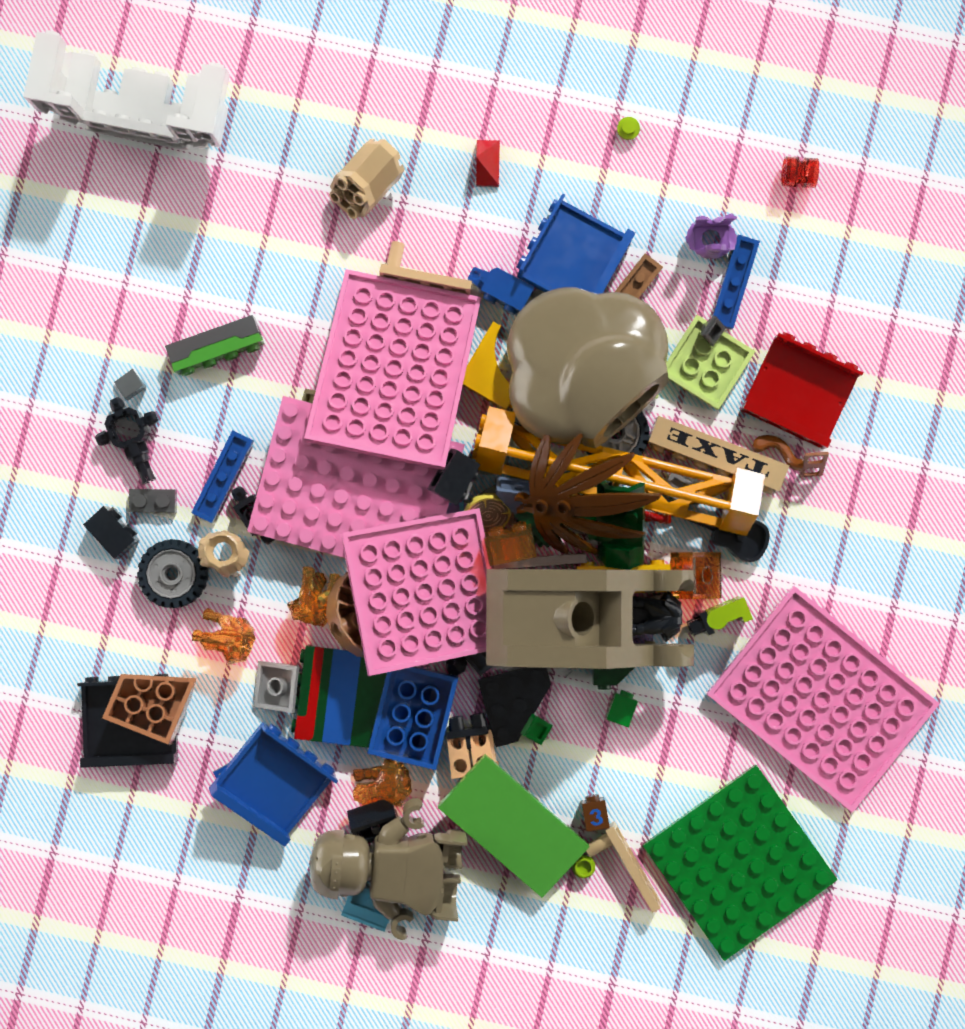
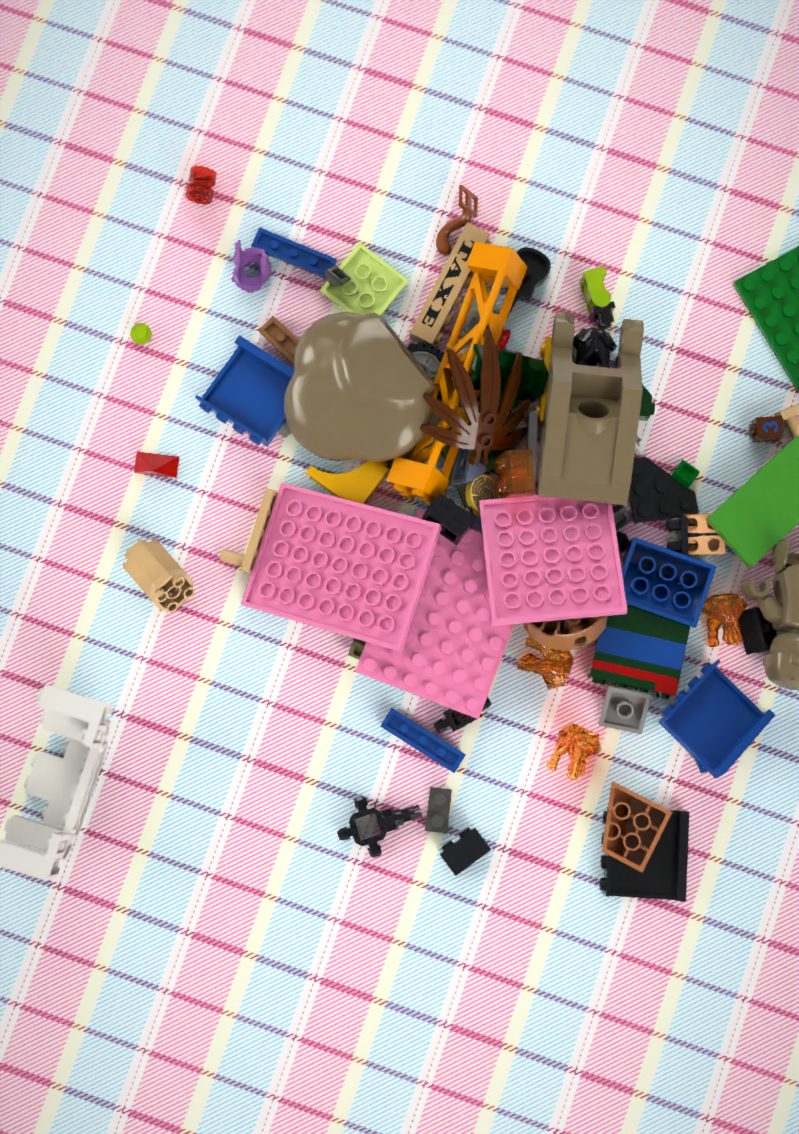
camera: 85 degrees left, 5 degrees down
(130, 384) = (325, 820): dark grey slope -> none
(155, 579) = (527, 800): wheel -> none
(215, 345) = (298, 735): piece -> none
(234, 563) = (491, 757): tan piece -> none
(502, 288) = (275, 462): blue hinge -> none
(621, 708) = (672, 395): green brick -> none
(706, 573) = (546, 308): clear orange slope -> none
(801, 390) = (398, 207): red panel -> none
(822, 698) = (679, 218): bright pink plate -> none

